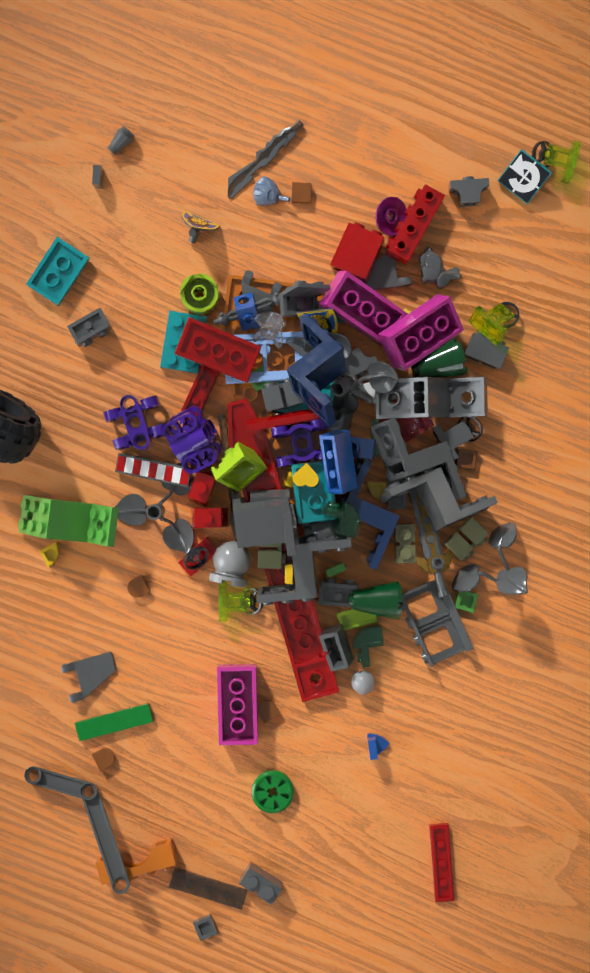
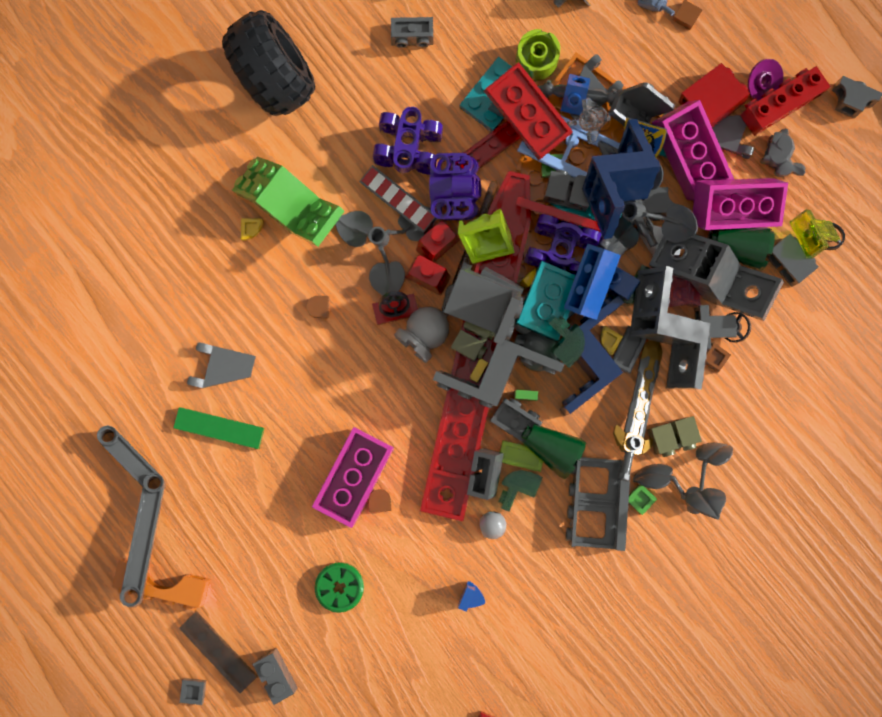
camera: 25 degrees right, 5 degrees down
(104, 758) = (188, 459): dark orange tile -> none
(236, 602) = (409, 373): clear neon green piece -> none
(305, 476) = (550, 279): yellow tile -> none
(404, 535) = (606, 414): olive piece -> none
(437, 498) = (669, 376): dark grey bracket -> none

